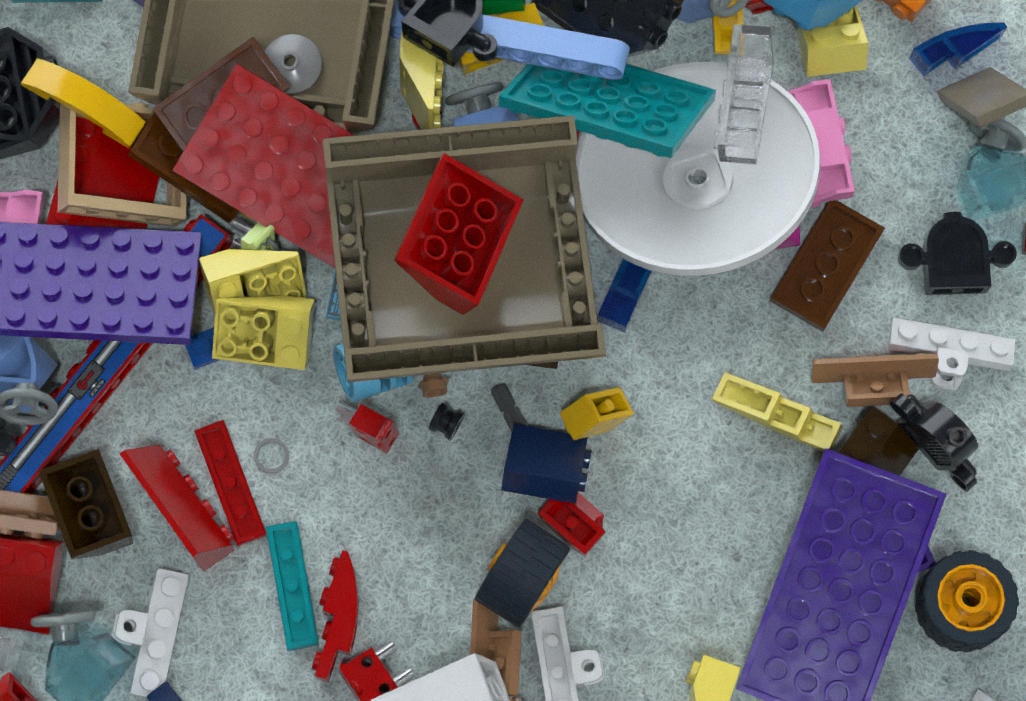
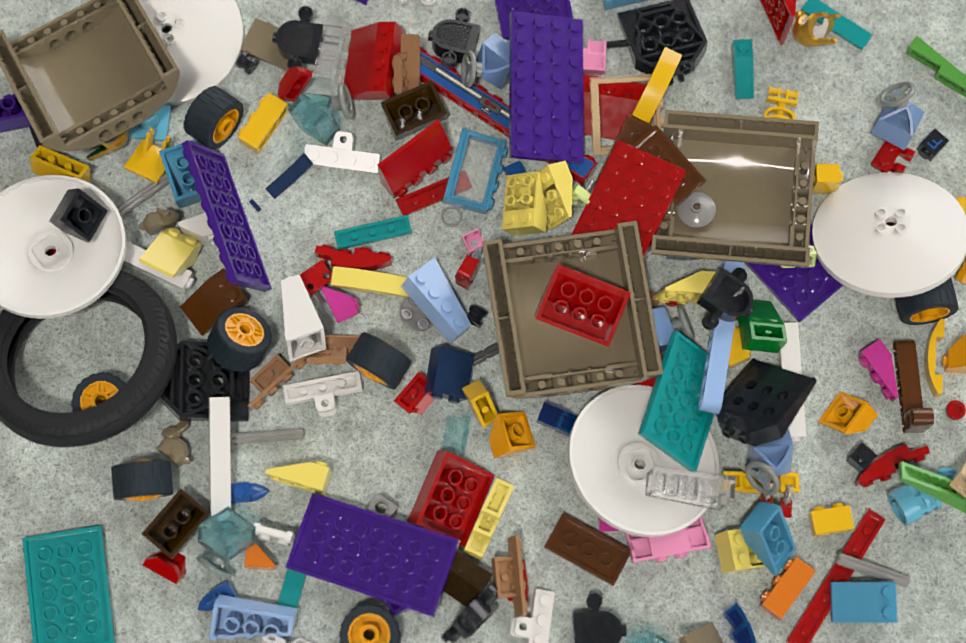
camera: 90 degrees right, 0 degrees up
(200, 410) = (474, 172): none -> window
(323, 409) = (473, 235): none -> bright pink piece
(380, 589) = (368, 281): none -> light yellow slope
(417, 638) = (340, 303): none -> dark pink slope
(419, 479) = (437, 300): none -> light blue wedge
(436, 514) = (413, 316): none -> light grey dish
(642, 459) = (456, 435): none -> clear light blue panel
(646, 372) = (510, 434): none -> light orange slope
(744, 471) = (451, 497): none -> red slope
(762, 565) = (375, 501): none -> light grey brick

